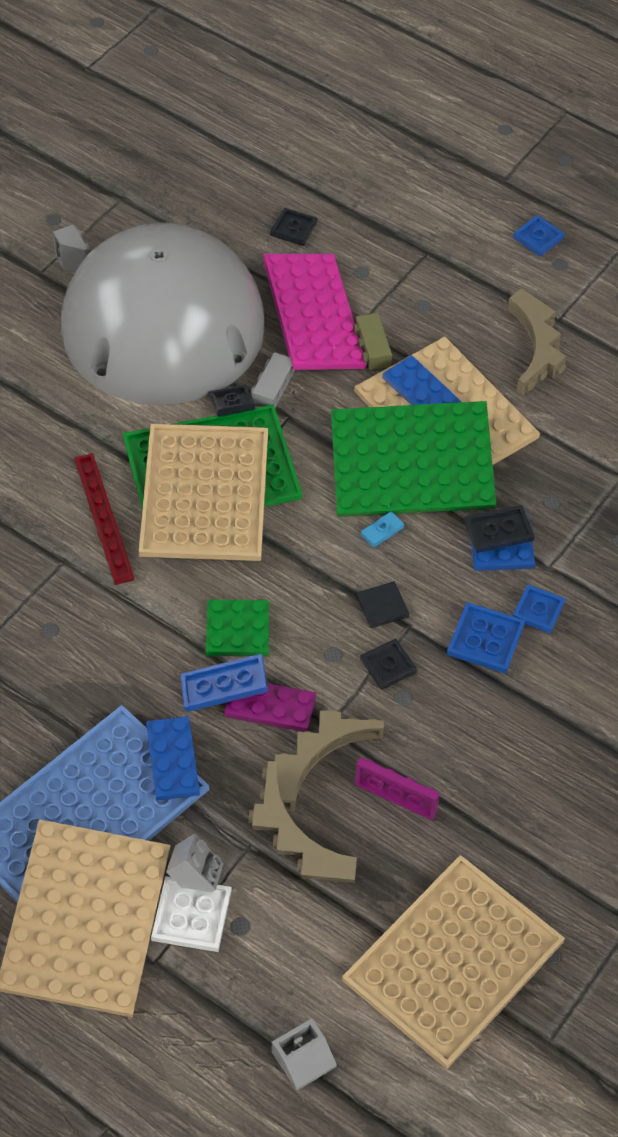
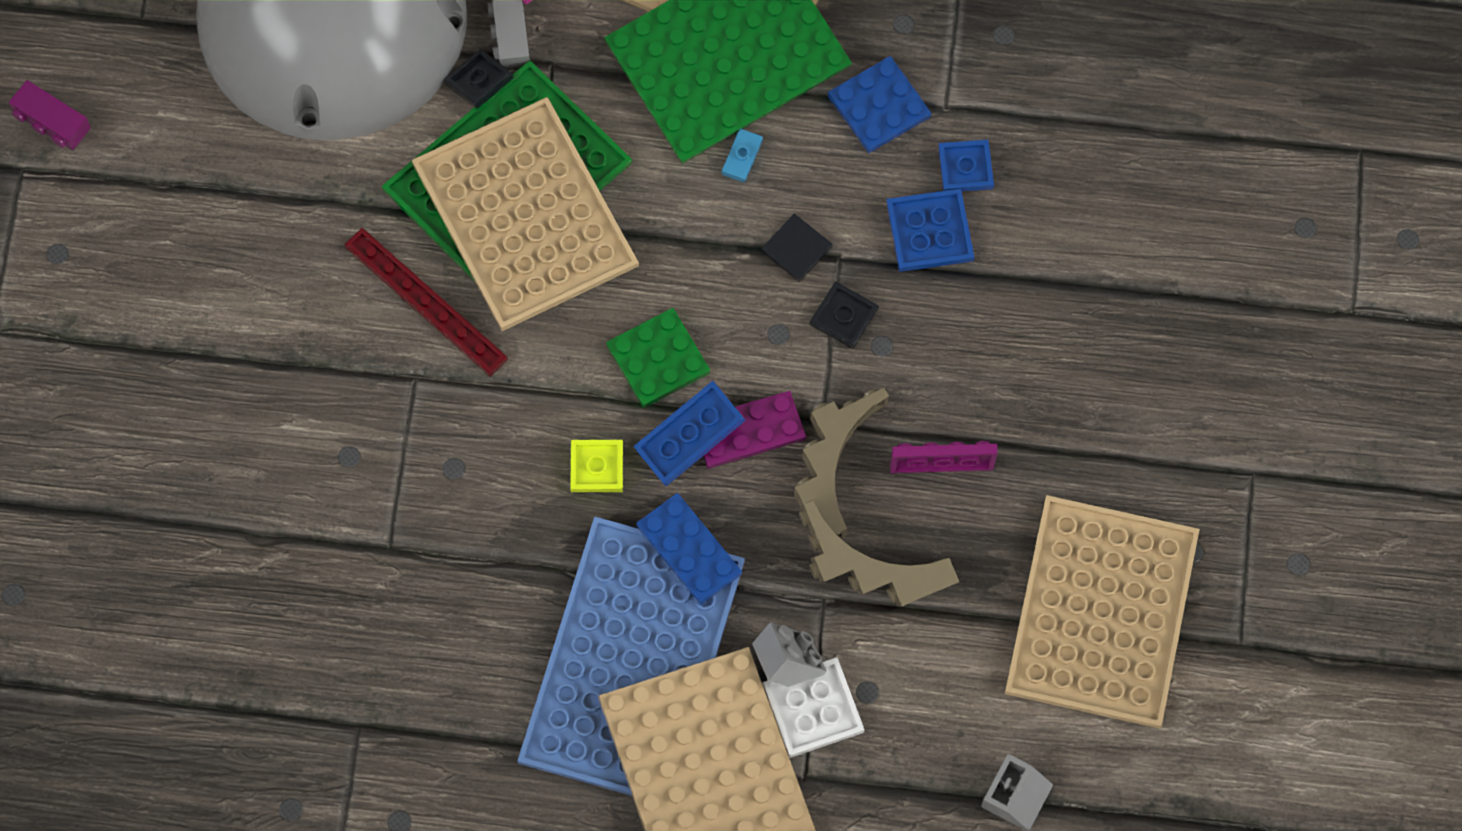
camera: 30 degrees left, 15 degrees up
(146, 674) = (596, 465): none -> neon yellow plate
(499, 528) = (873, 92): black plate -> none

